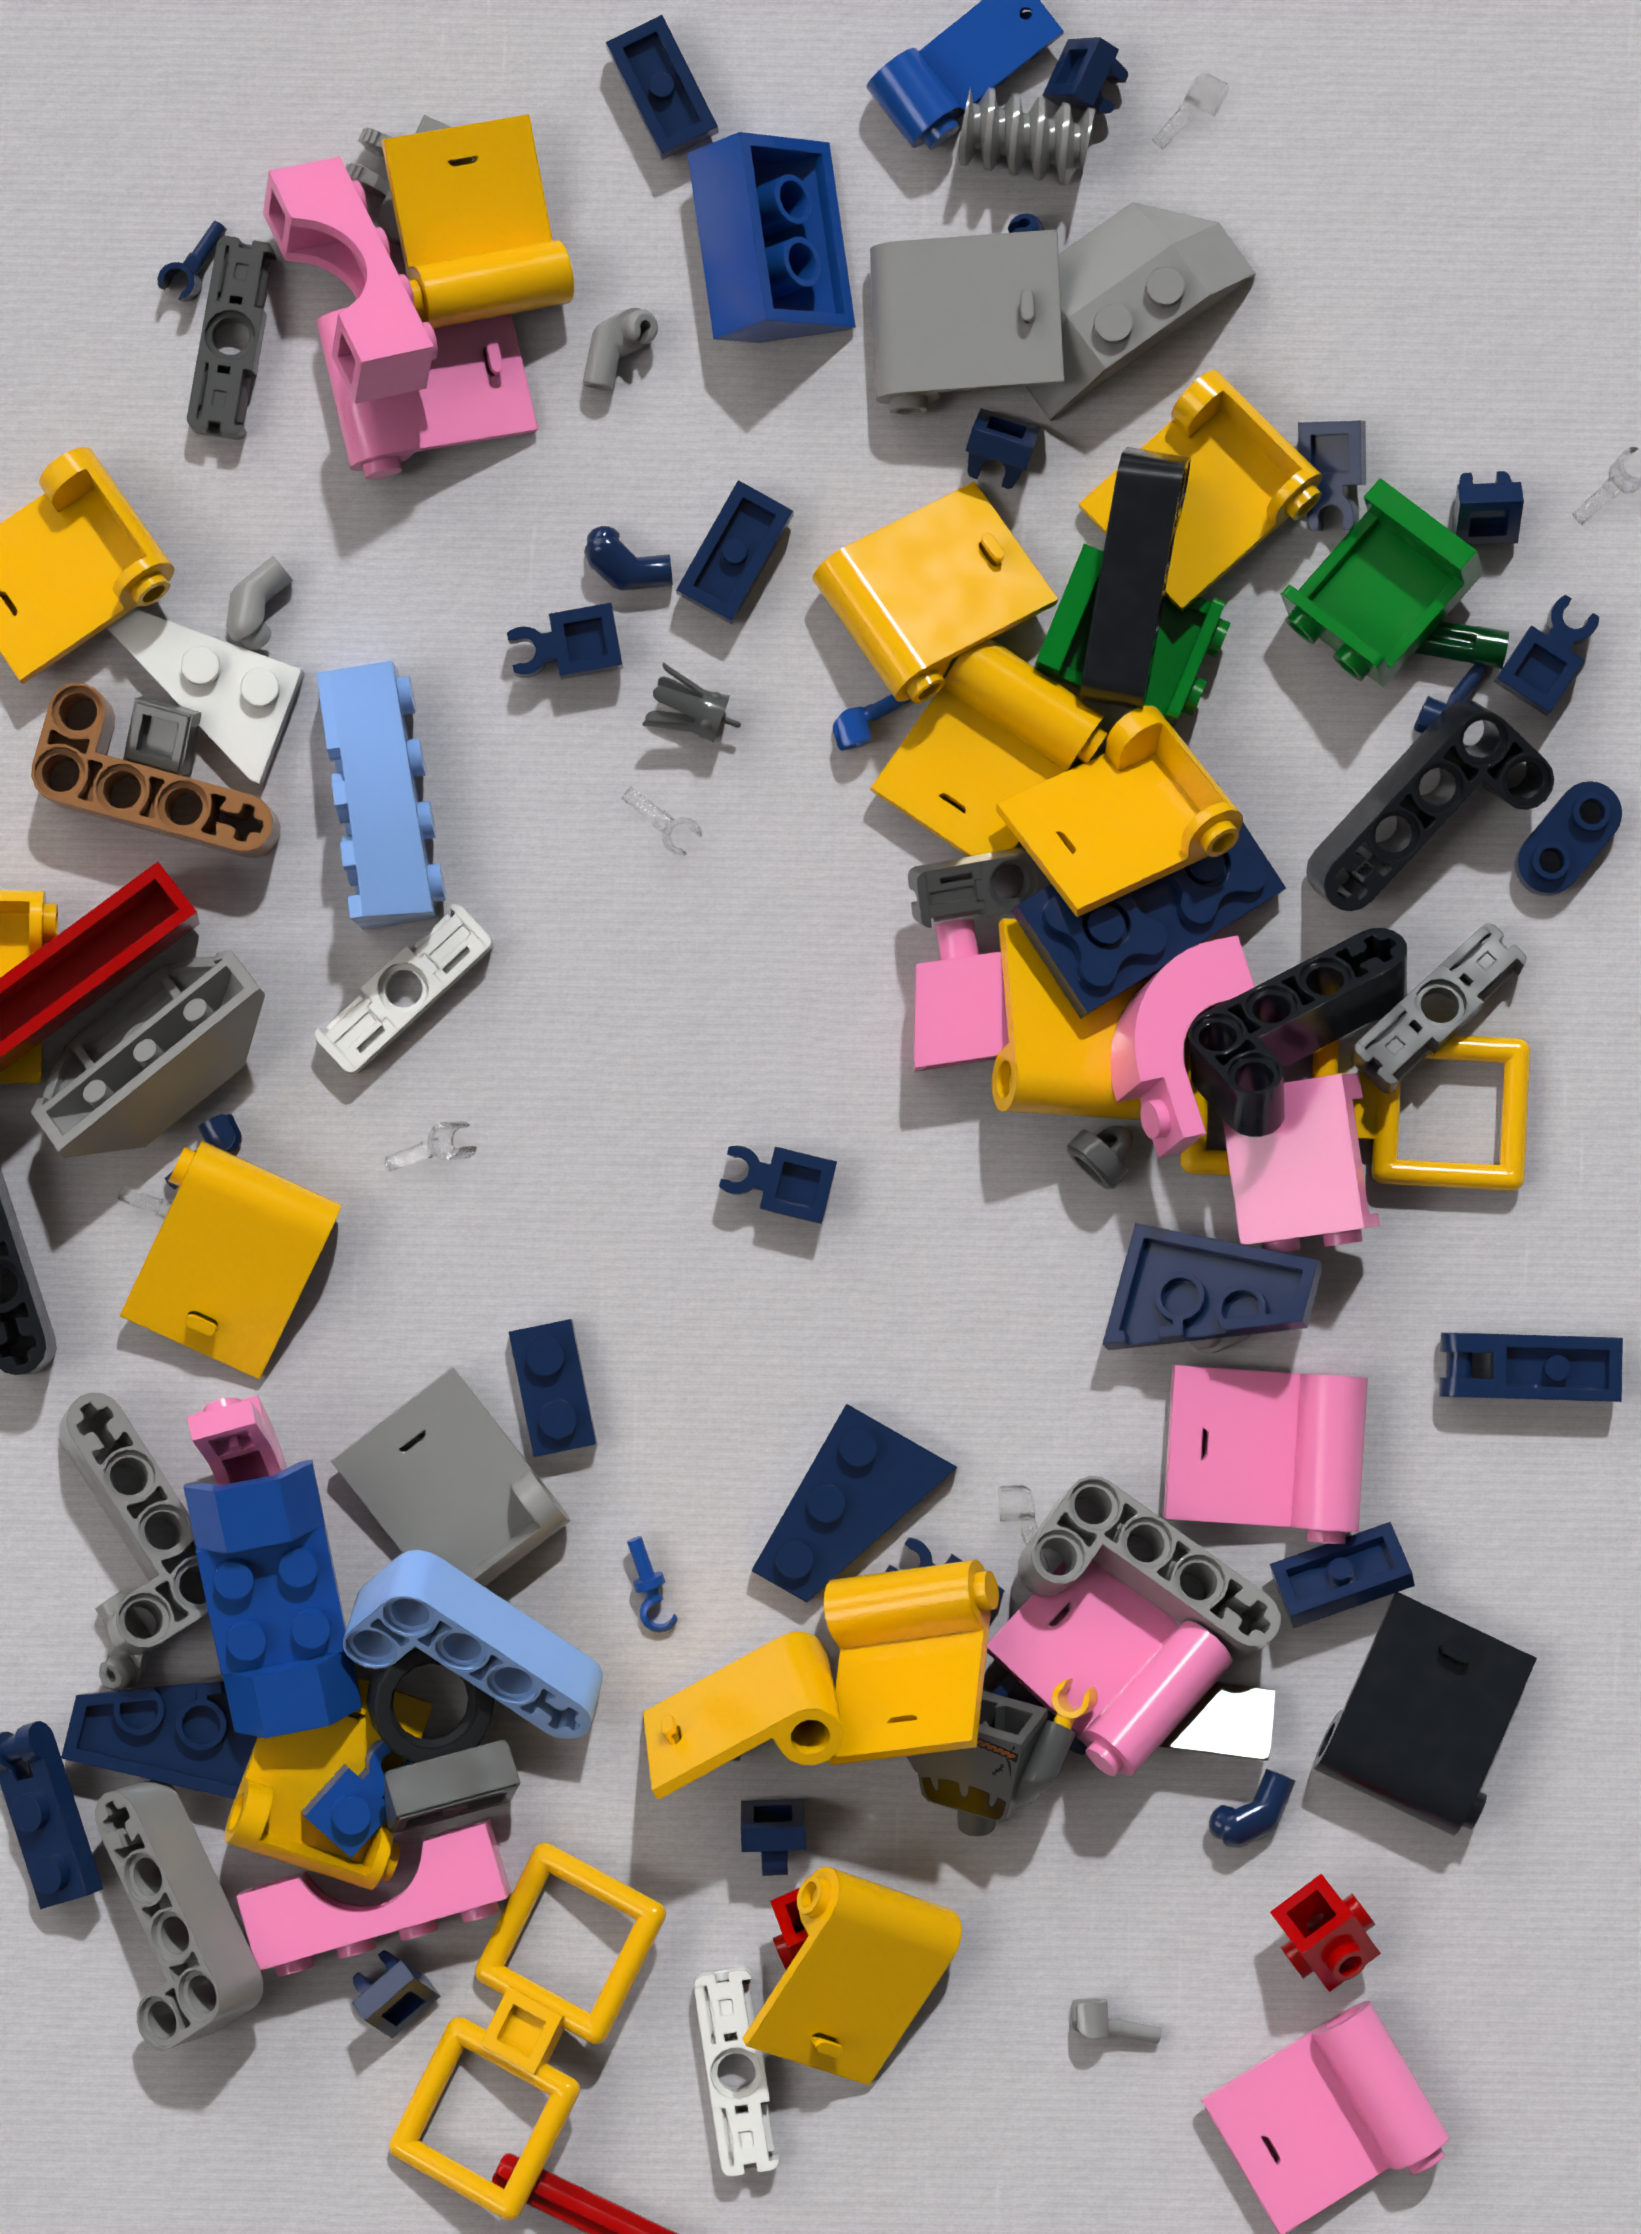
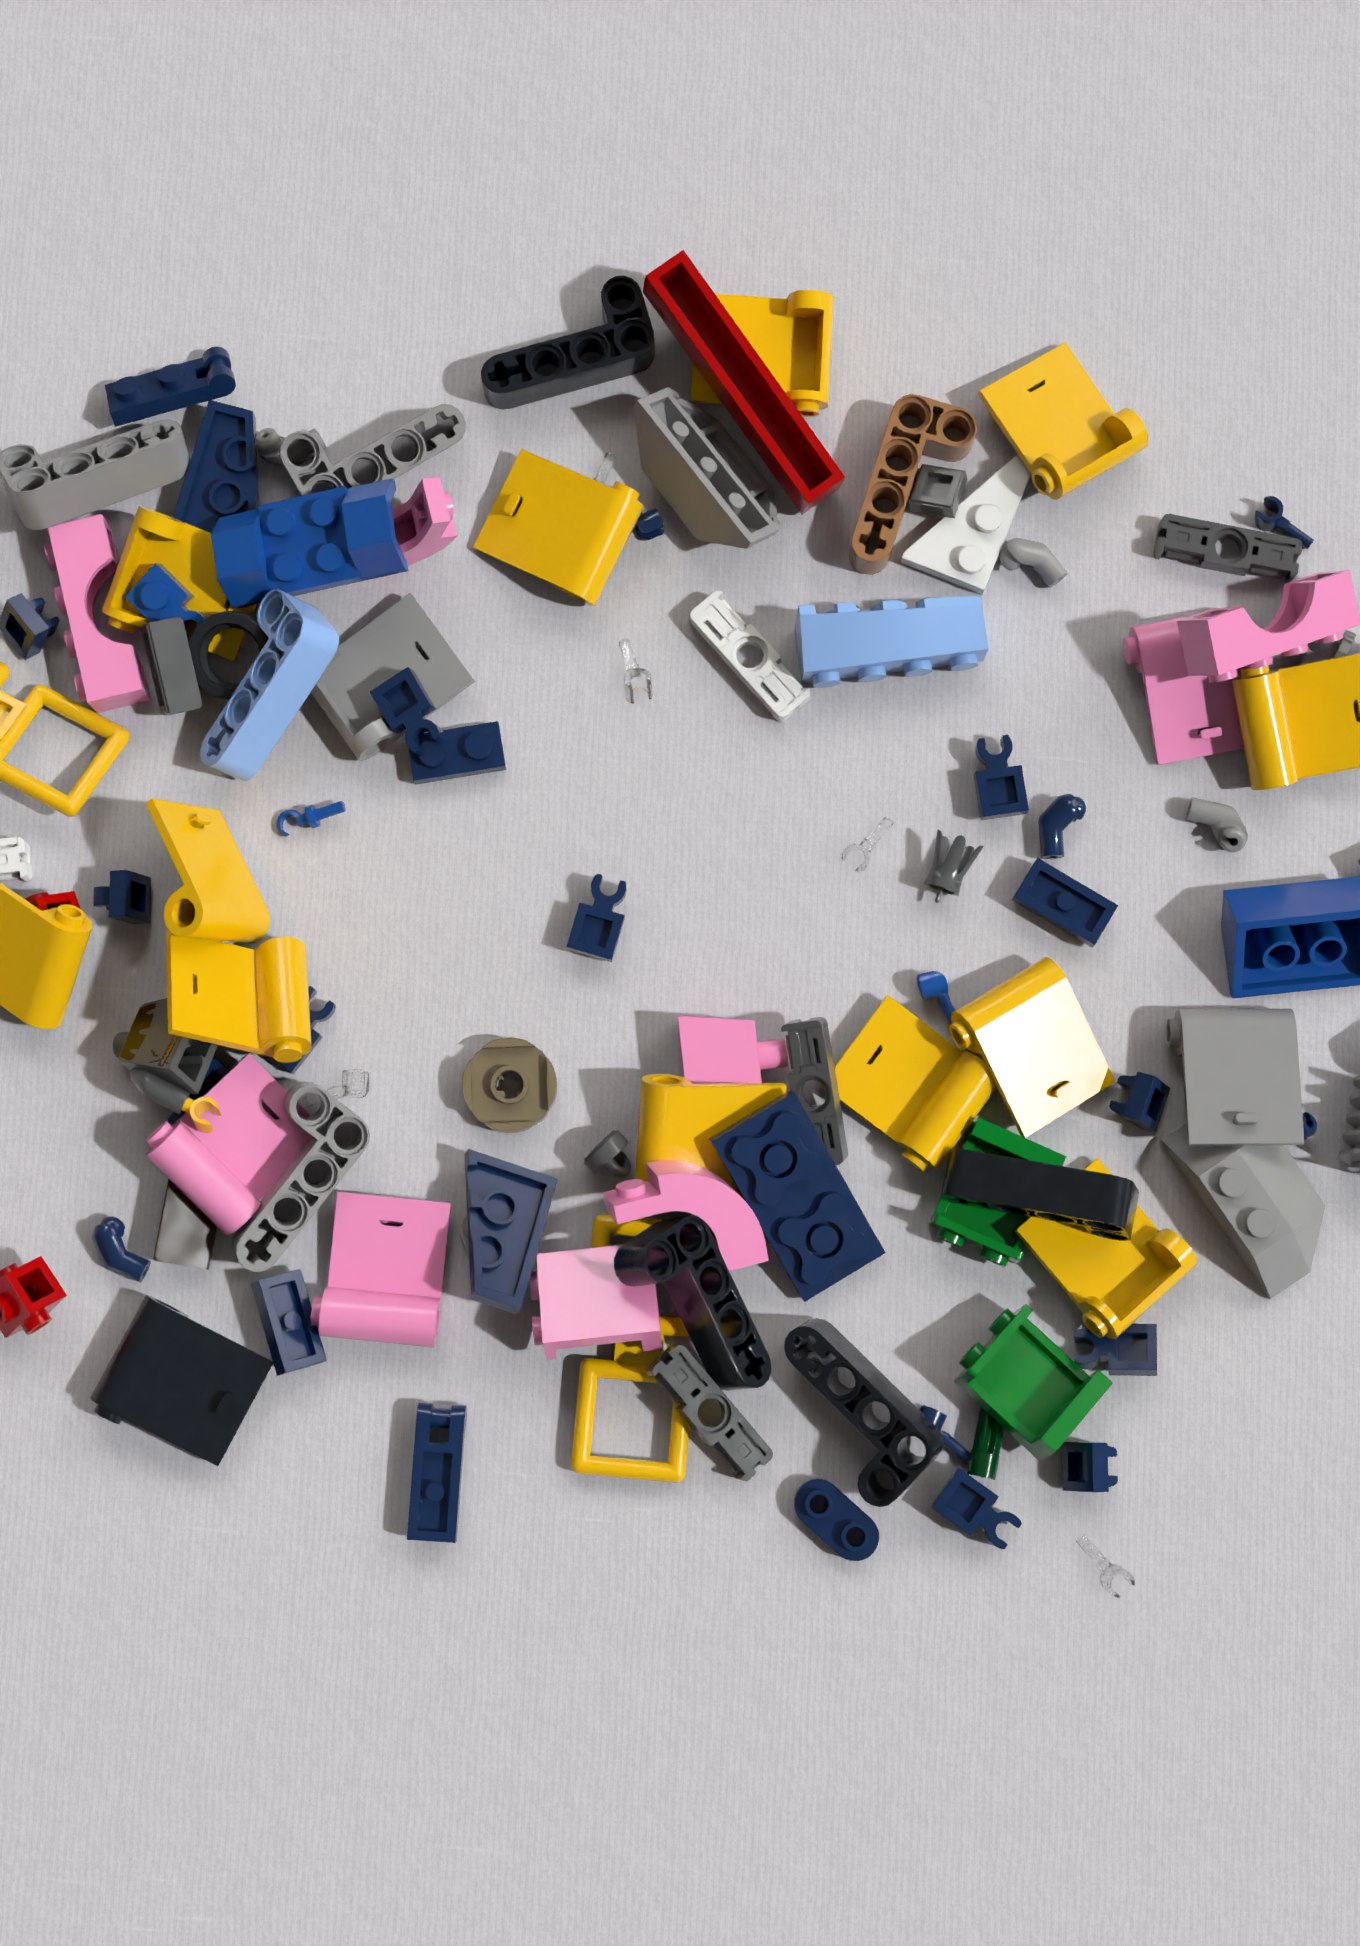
camera: 85 degrees right, 5 degrees down
(494, 1459) = (405, 707): none -> dark blue plate
(846, 1501) = (363, 960): dark blue wing -> none
(1038, 1318) = (492, 1106): none -> dark tan plate
(1123, 815) = (860, 1177): yellow door -> none

